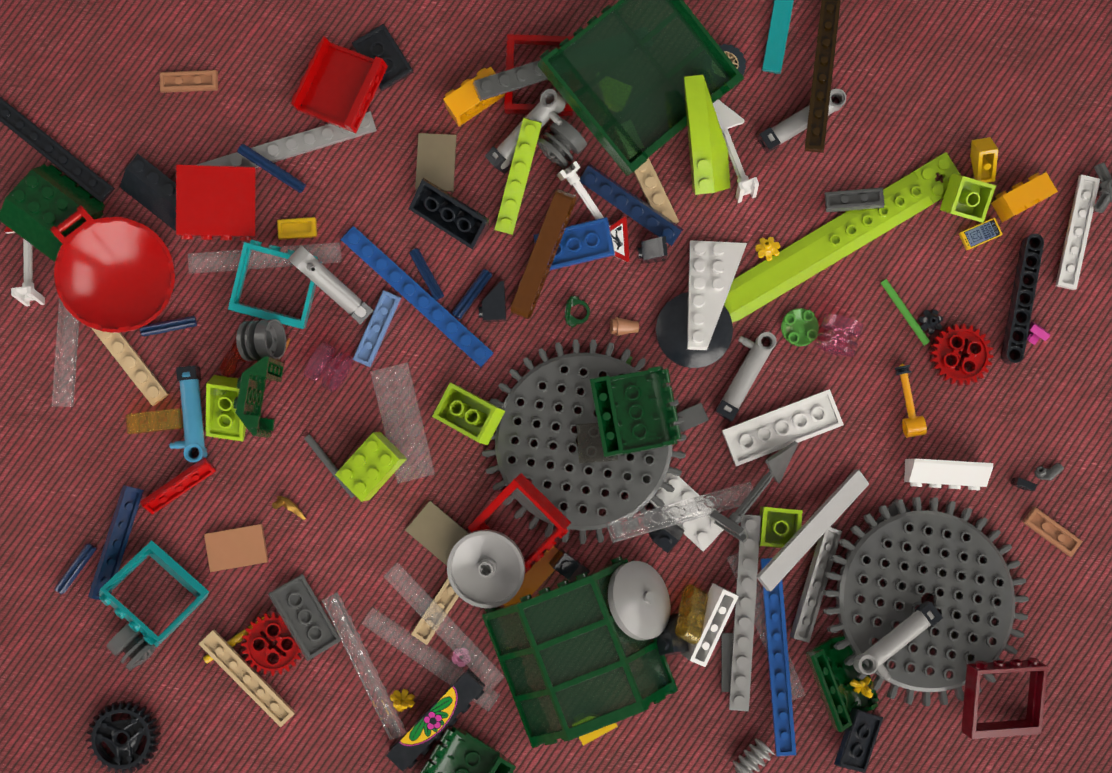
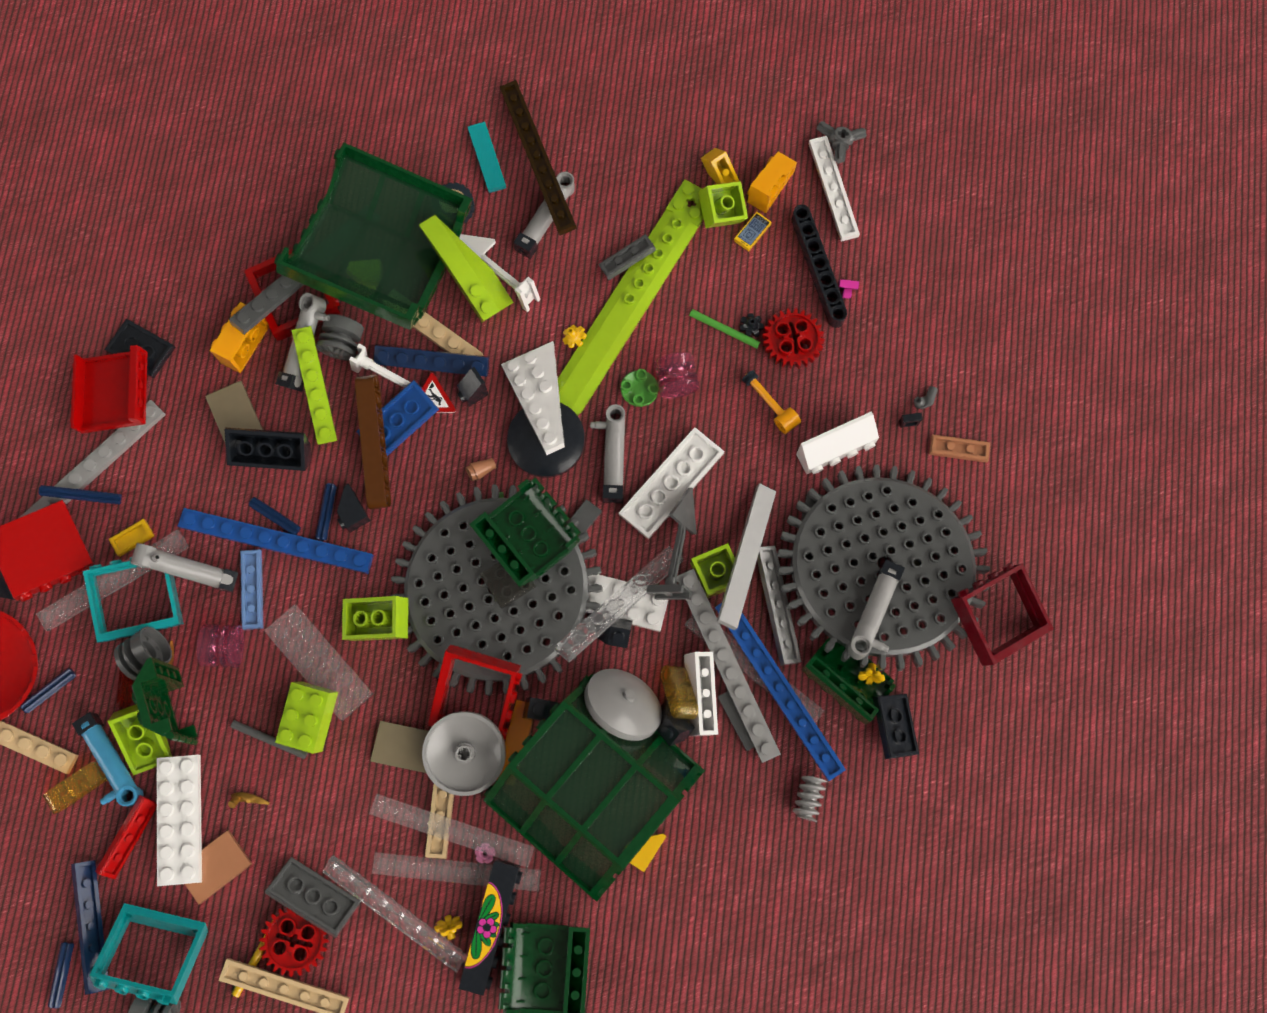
camera: 30 degrees left, 10 degrees down
(226, 495) = (179, 820): none -> white plate
(571, 320) = (427, 487): dark green piece -> none

